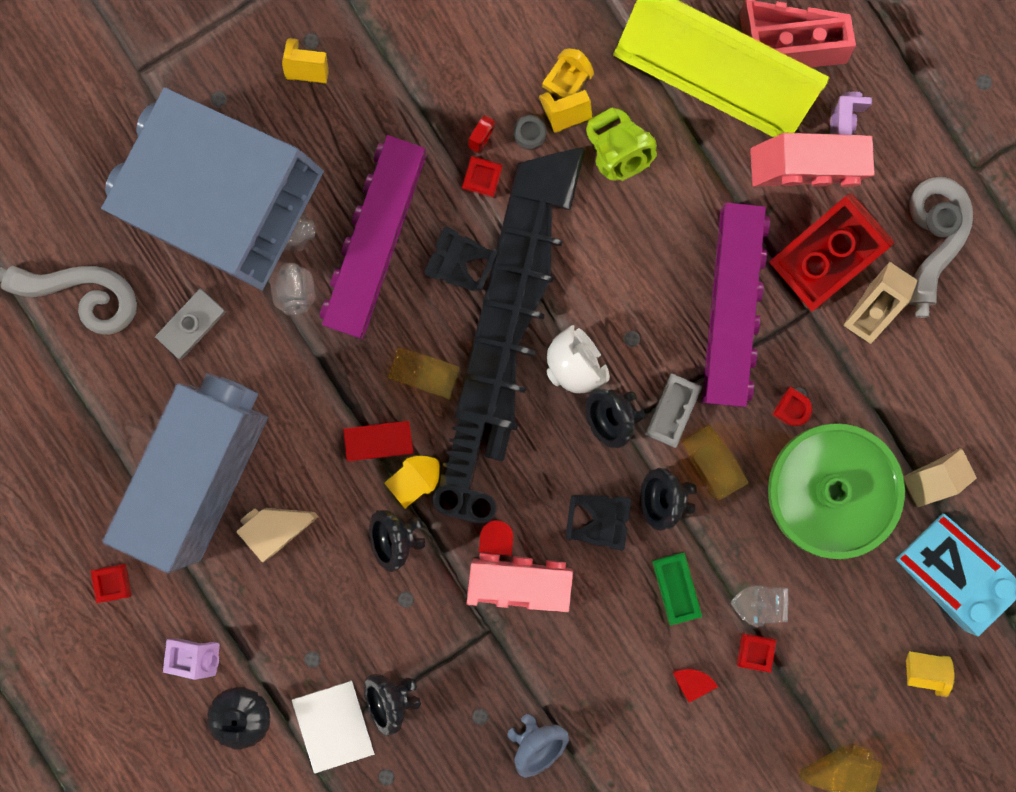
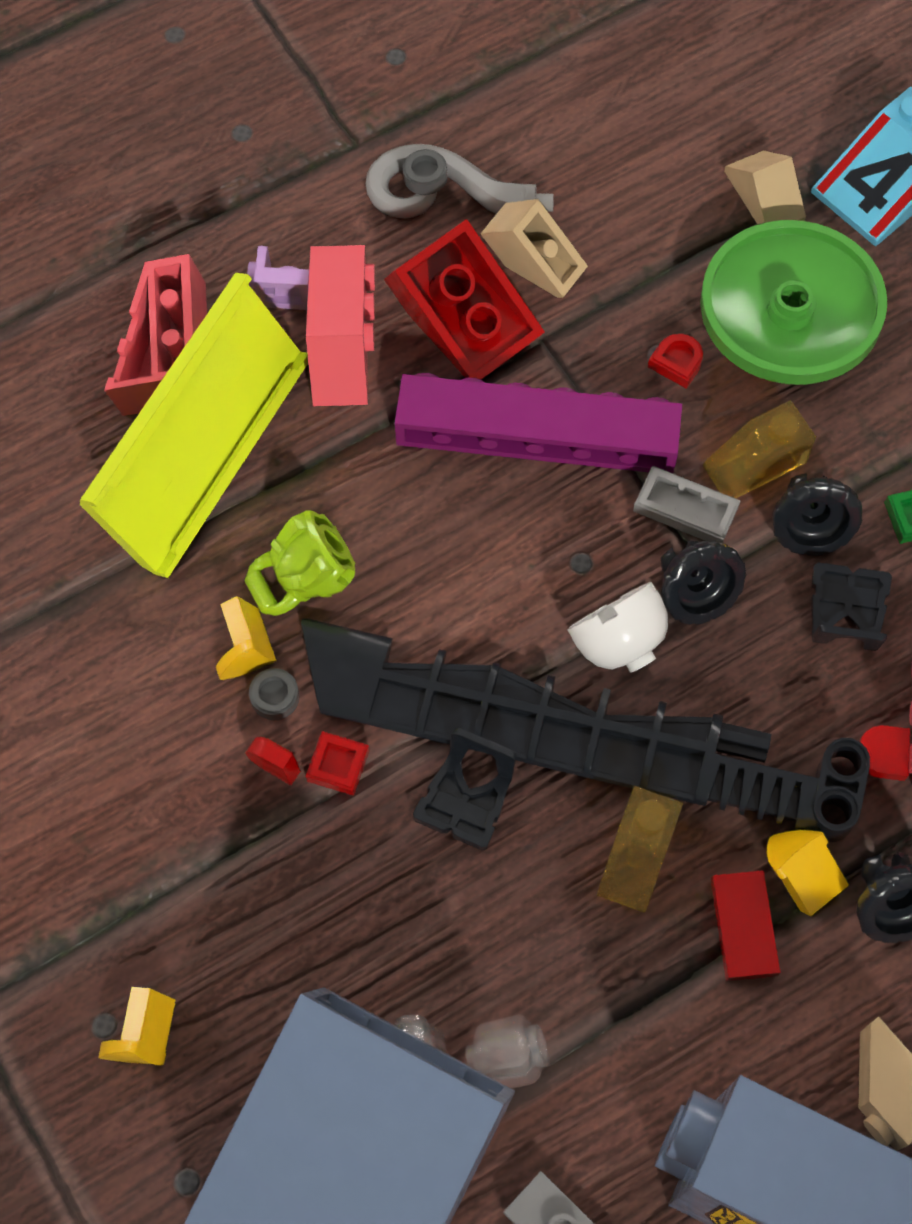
camera: 85 degrees left, 20 degrees down
(374, 237) = (429, 922): magenta brick -> none
(568, 73) = (191, 637): yellow tile -> none

